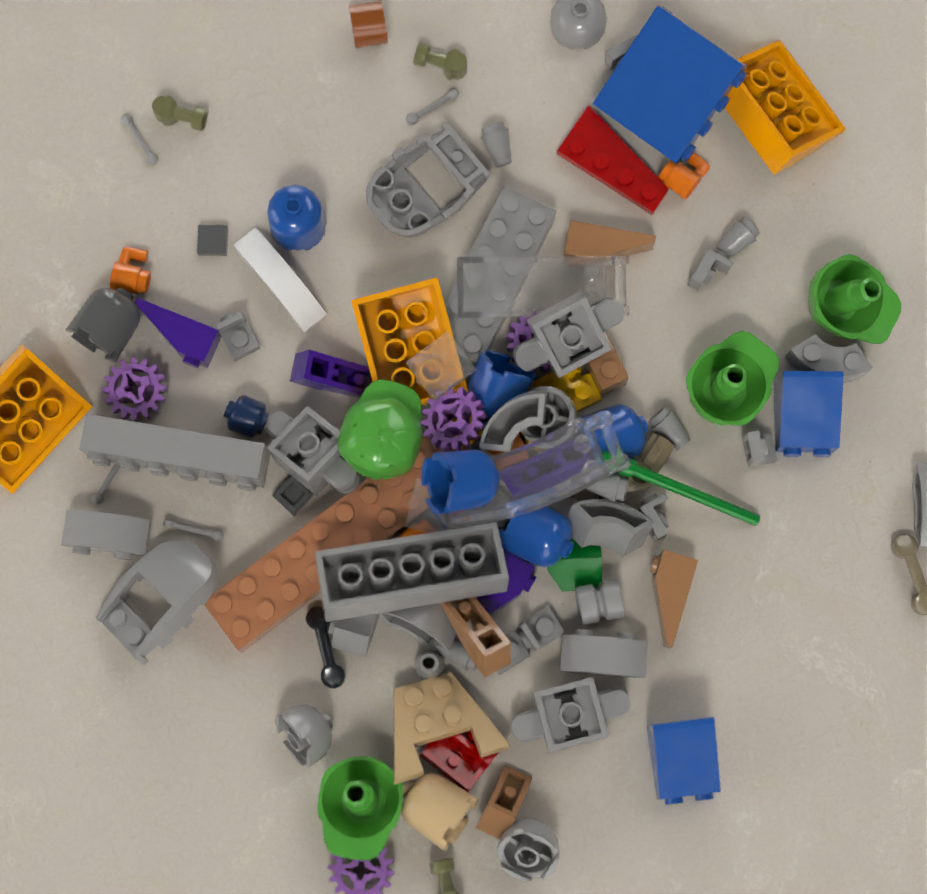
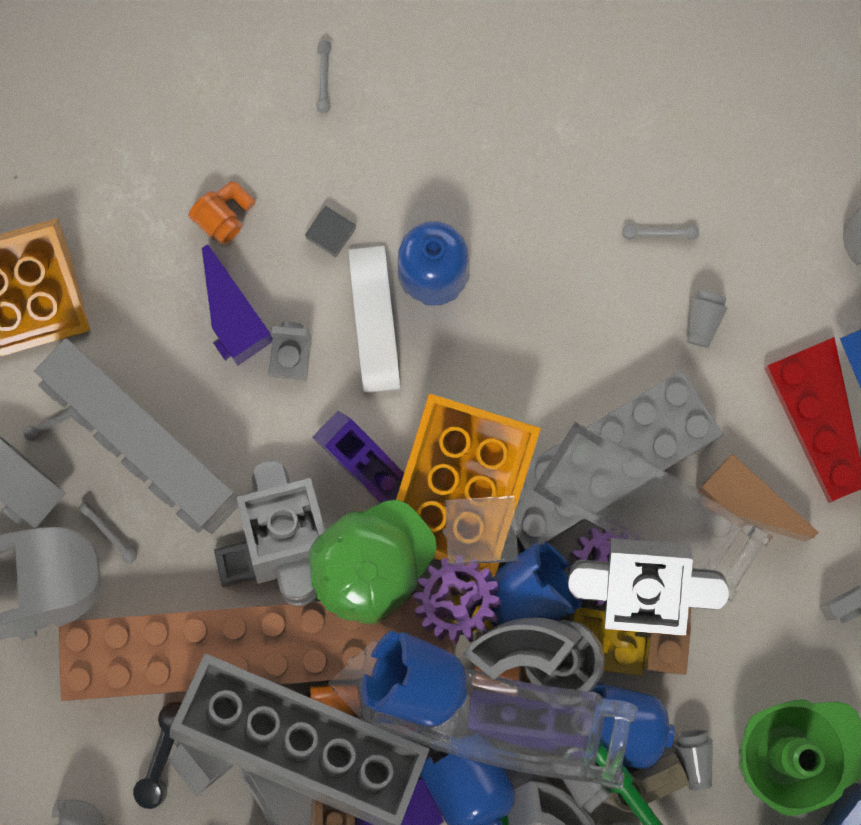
camera: 35 degrees right, 0 degrees up
(106, 322) = (159, 249): dark grey cylinder -> none
(145, 385) = (128, 338): medium lavender gear -> none
(169, 113) = (374, 68): olive leg -> none
(246, 416) = (241, 446): dark blue head -> none
(368, 24) = (646, 100): dark orange piece -> none
(403, 204) = (559, 315): light grey slope -> none
(453, 64) = (711, 199): olive leg -> none

